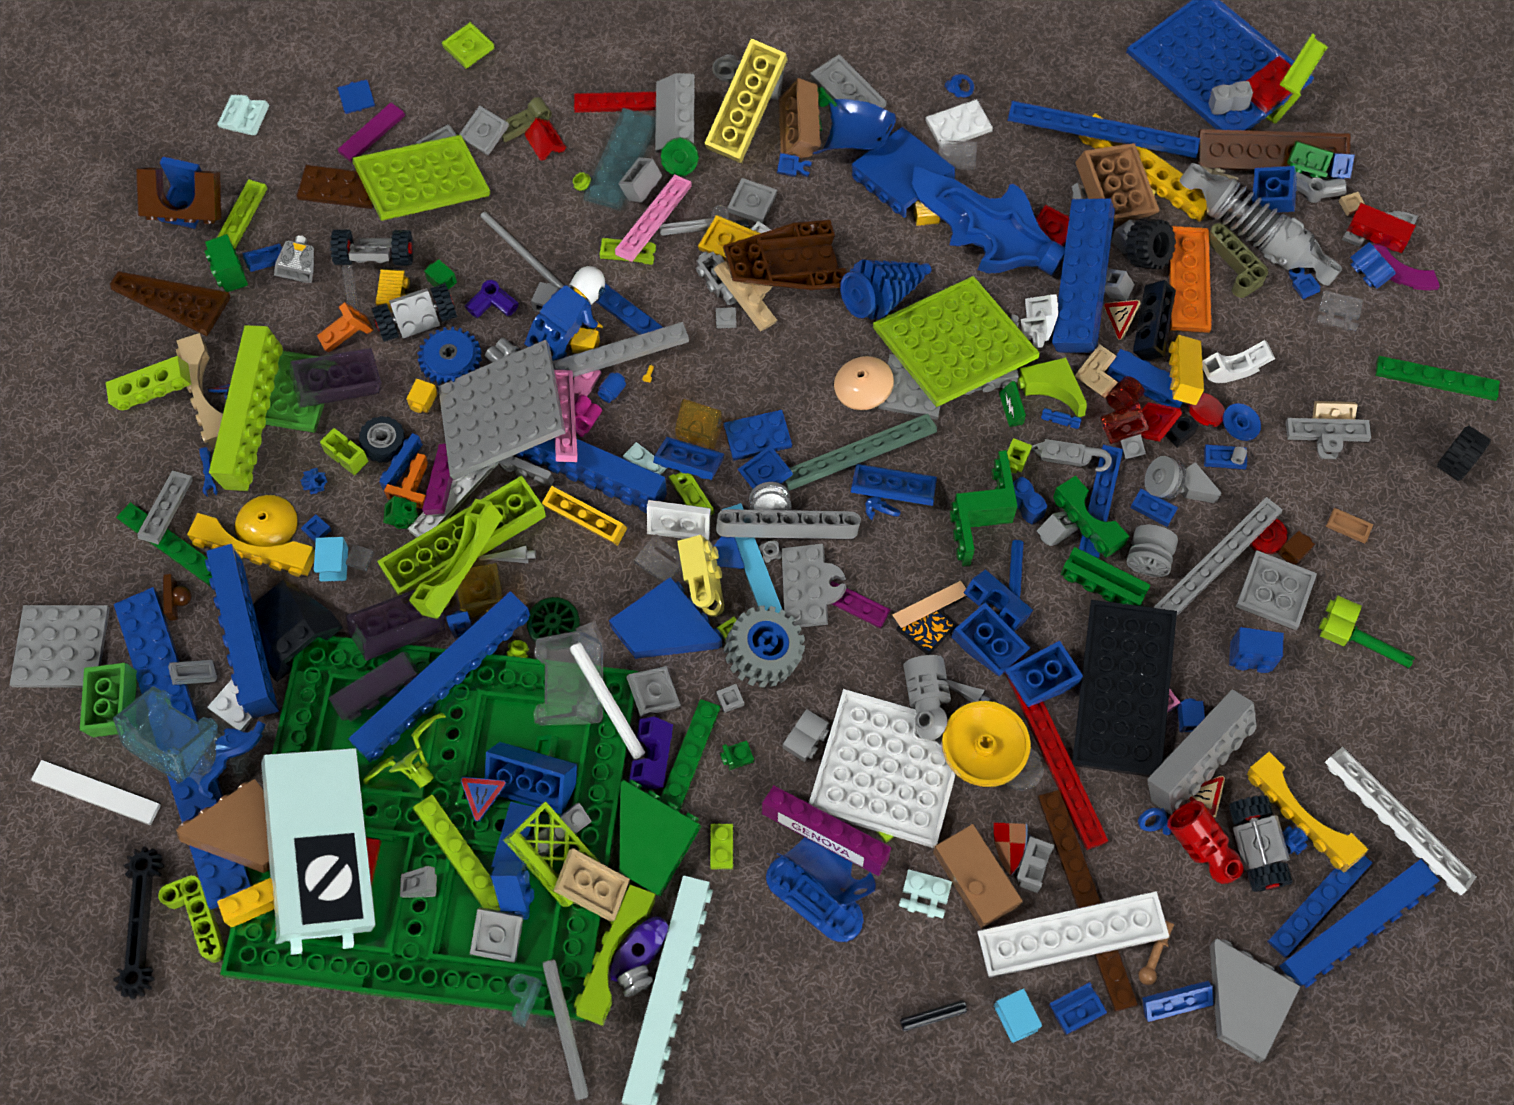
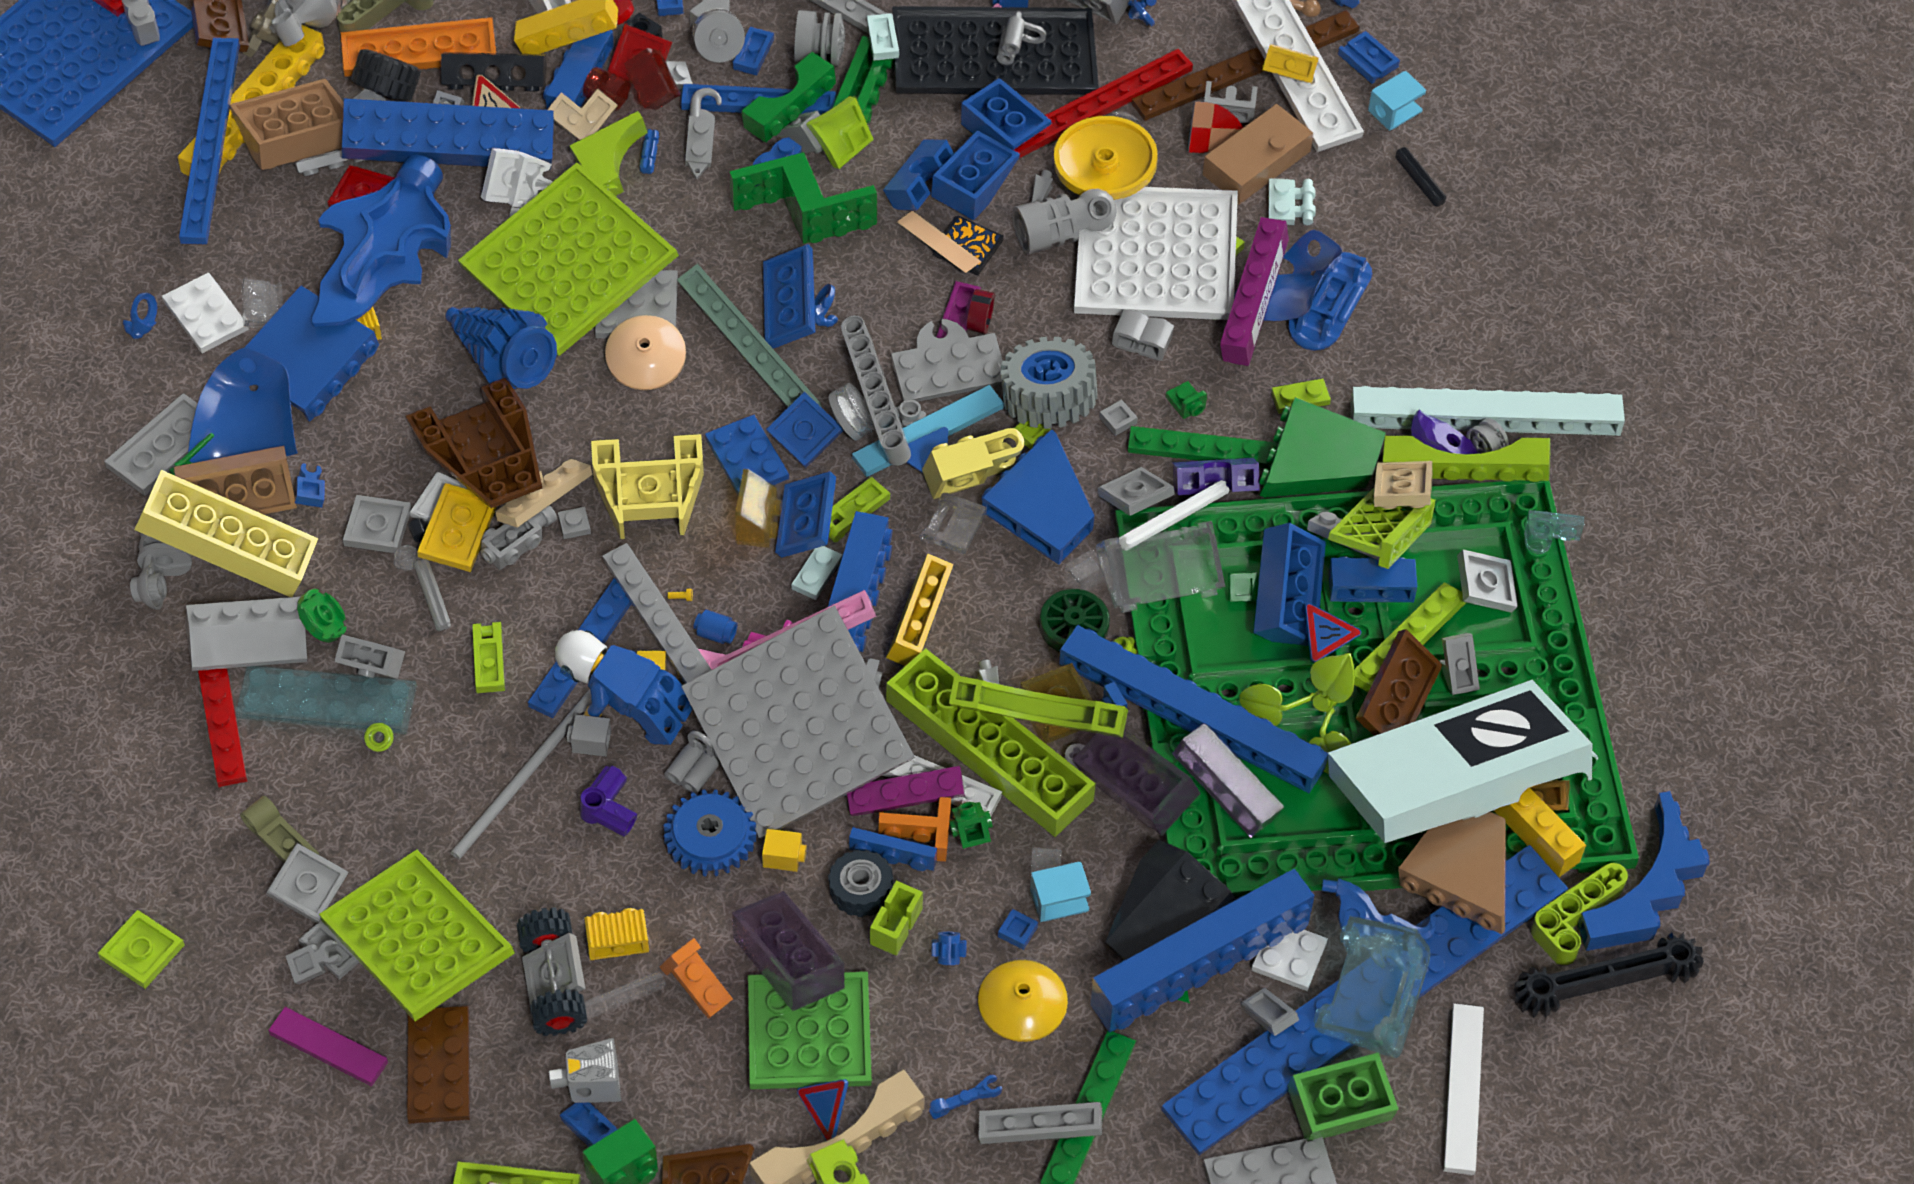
camera: 105 degrees left, 10 degrees down
(174, 596) = (1168, 1074): reddish brown tile -> none
(179, 957) = (1635, 914): none -> blue arch
(246, 408) = (867, 1045): lime brick -> none
(291, 556) = (1061, 1052): yellow arch -> none
(356, 96) = (259, 1090): blue piece -> none
(405, 826) = (1399, 686): none -> reddish brown plate
(414, 312) = (676, 912): plate -> none
(427, 126) = (309, 961): none -> light grey plate
(439, 273) = (579, 877): green brick -> none
(513, 887) = (1432, 561): blue brick -> none
(544, 138) = (310, 804): red panel -> none
(565, 1030) = (1566, 490): light grey axle -> none
(653, 218) = (433, 628): bright pink plate -> none
(677, 520) = (902, 503): white plate -> none
(734, 363) = (649, 487): none -> light yellow wedge
(850, 616) = (980, 311): none -> dark red piece
(1012, 405) = (645, 195): green slope -> none
(1016, 567) = (865, 170): blue axle -> none
(1020, 451) = (714, 182): lime brick -> none
(1049, 550) = (841, 131): none -> lime plate
(1061, 921) = (1290, 63): none -> yellow plate
(1125, 694) = (1012, 37): none -> light grey piece
(1141, 595) = (882, 36): none -> light aqua plate

